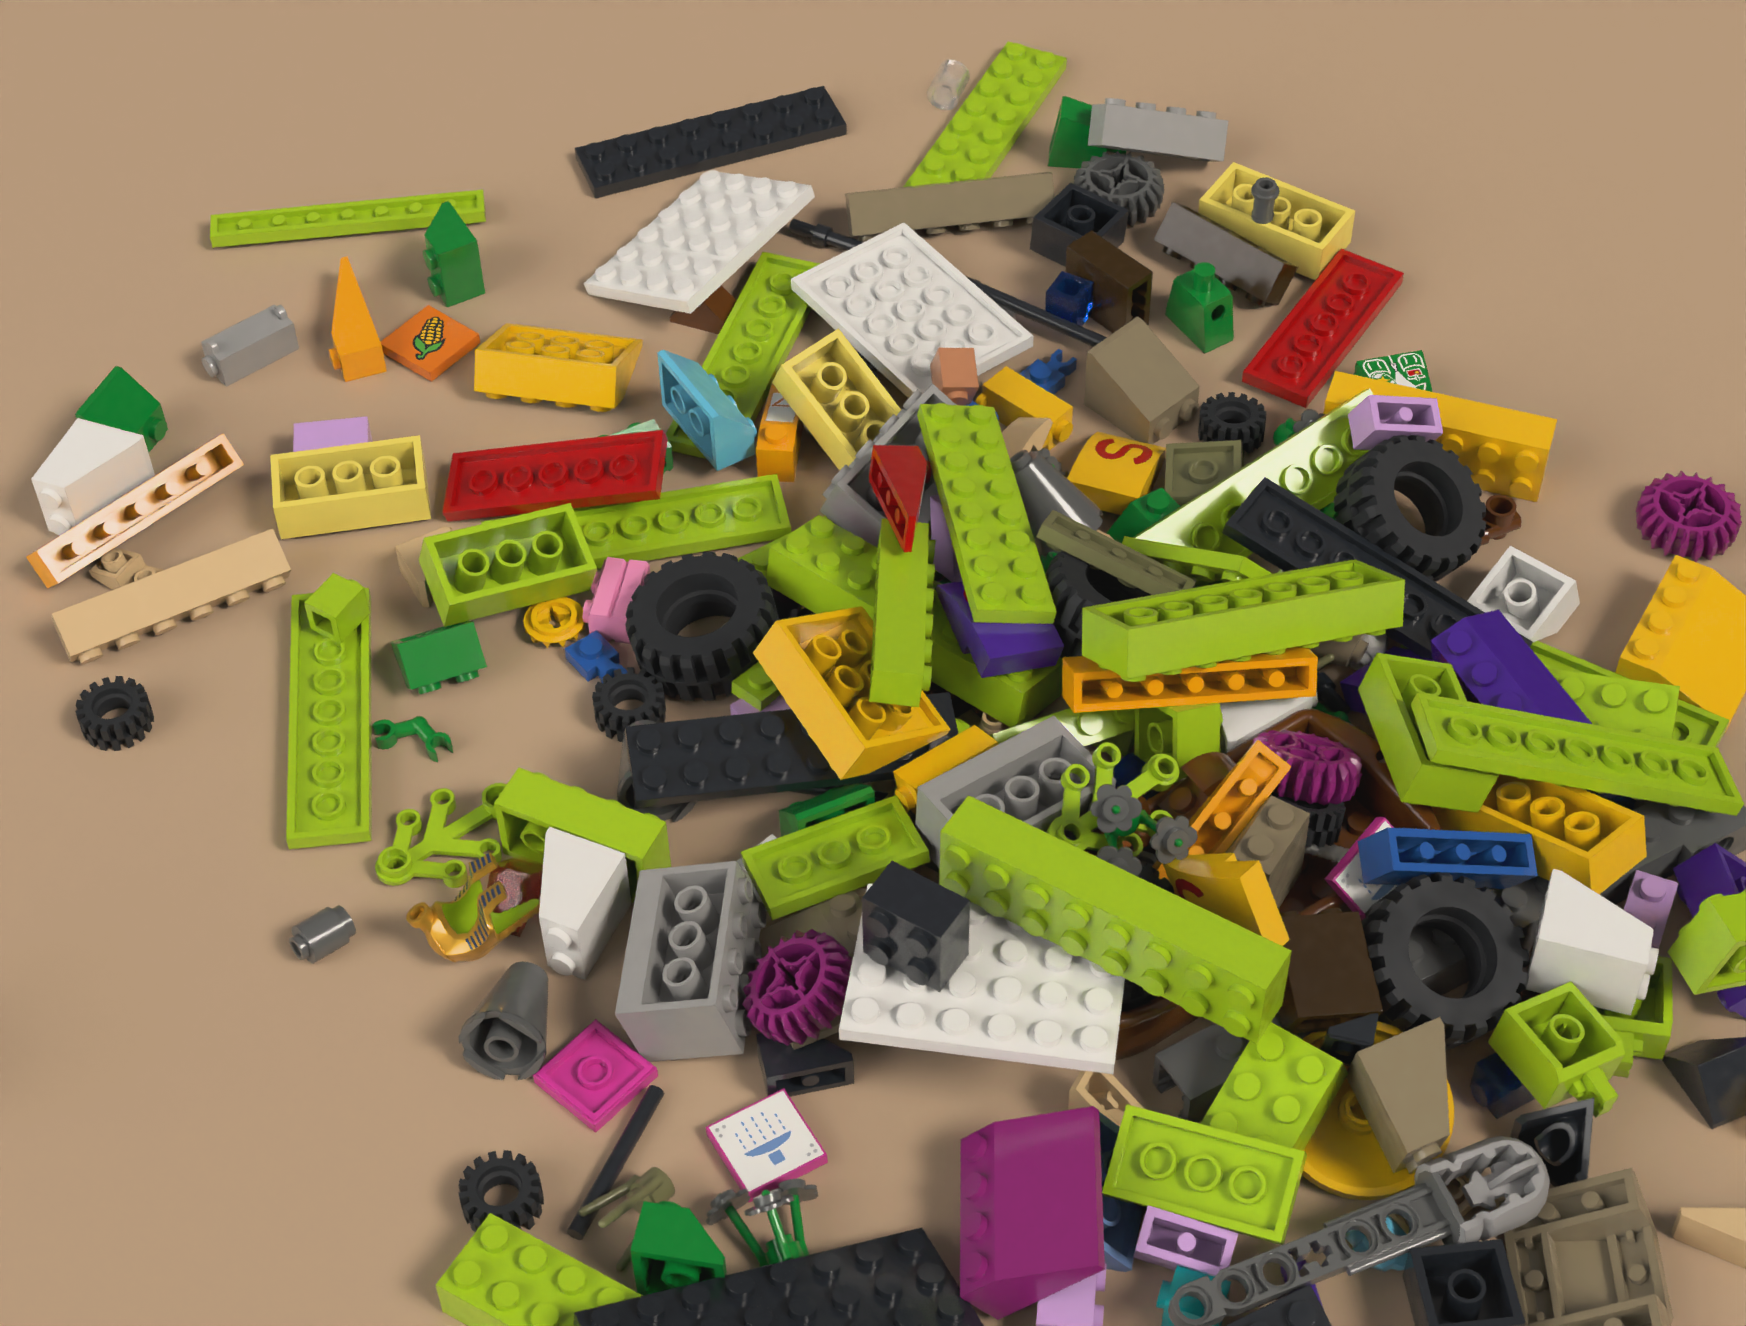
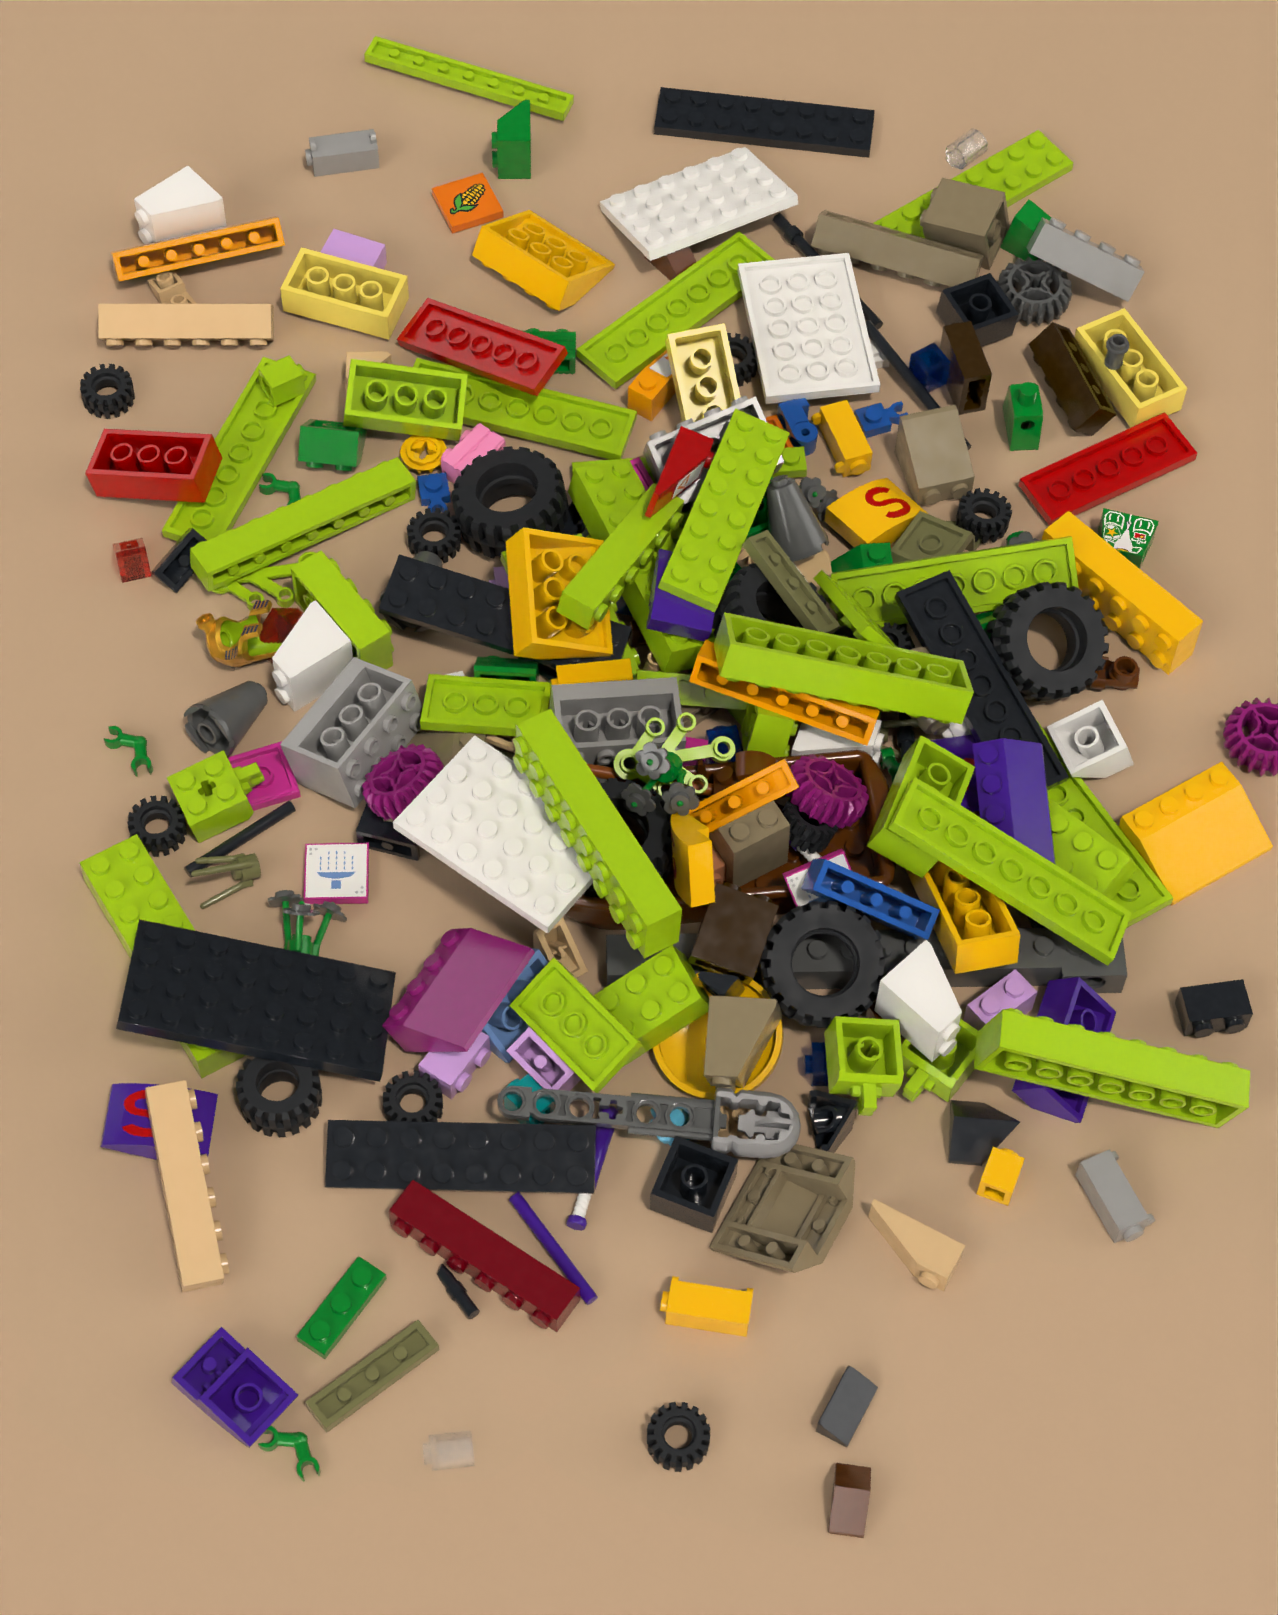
camera: 25 degrees right, 10 degrees up
(125, 406) = (227, 172): green slope -> none
(234, 767) = (154, 465): none -> red brick
(267, 891) = (132, 560): none -> clear red slope
(322, 934) = (148, 604): dark grey brick -> none
(334, 862) = (175, 565): none -> black slope
(354, 337) = (418, 171): light orange slope -> none
(411, 1106) = (139, 744): none -> green arm
(460, 759) = (302, 523): none -> lime brick
(556, 1119) = (215, 794): none -> lime hinge
(672, 1249) = (226, 909): green slope -> none
(705, 411) = (612, 341): medium azure slope -> none
(915, 926) = (469, 779): black brick -> none
(955, 374) = (796, 393): nougat brick -> none
(1001, 139) = (967, 218): none -> dark tan slope
(1026, 434) = (818, 459): tan slope -> none
(1387, 416) = (1069, 567): lavender brick -> none

